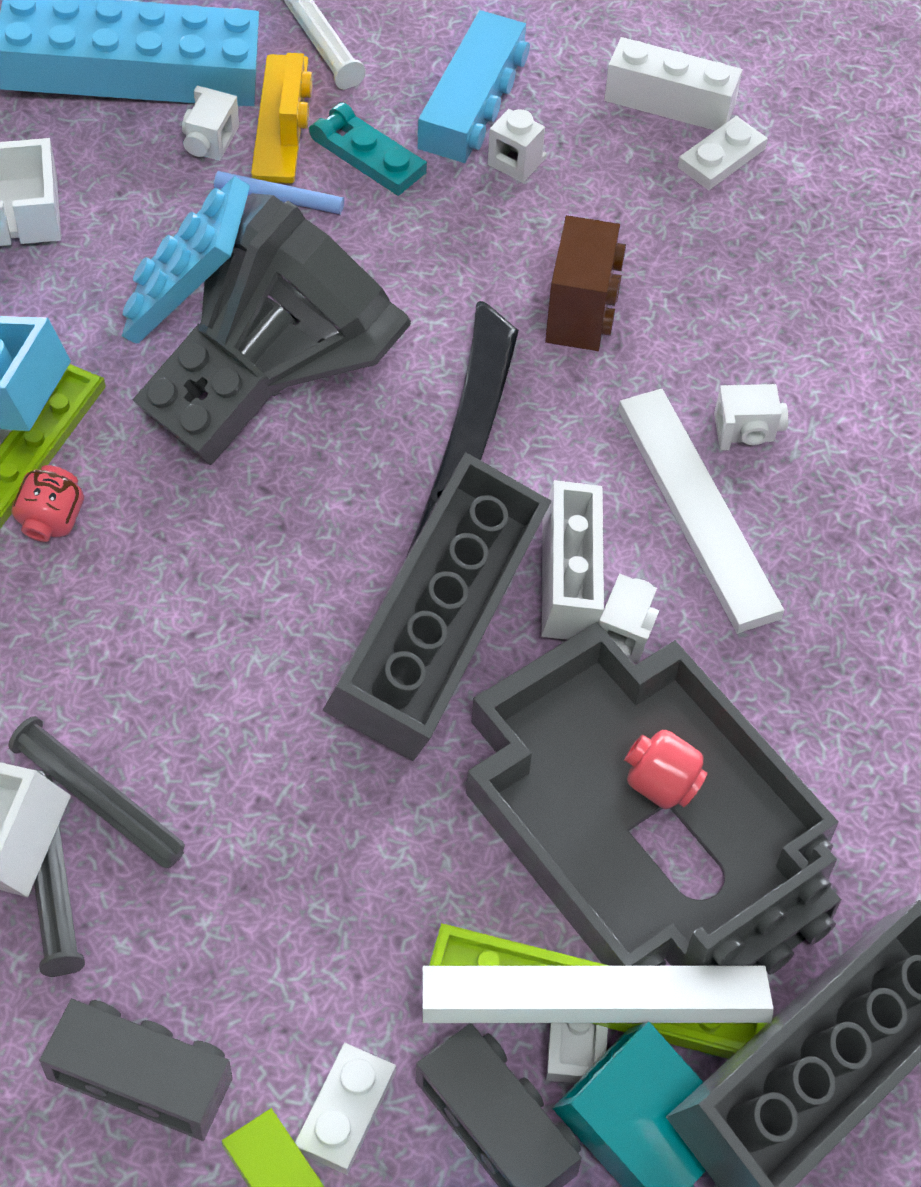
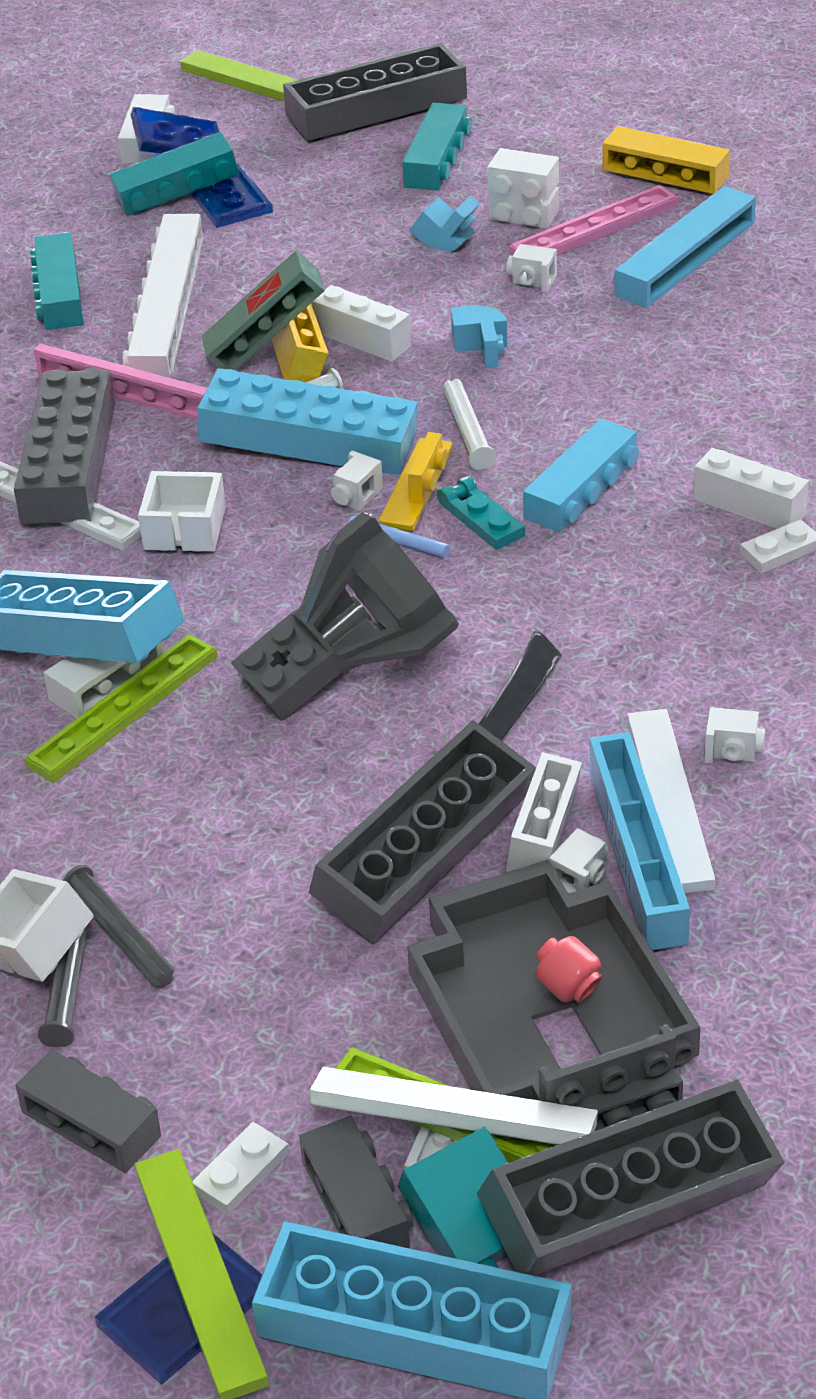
camera: 20 degrees right, 15 degrees down
(47, 503) = (144, 725): coral head -> none
(185, 260) = (294, 563): medium azure plate -> none
(519, 133) = (602, 513): white brick -> none
(585, 283) = (619, 621): reddish brown brick -> none
(690, 576) = (639, 842): none -> medium azure brick

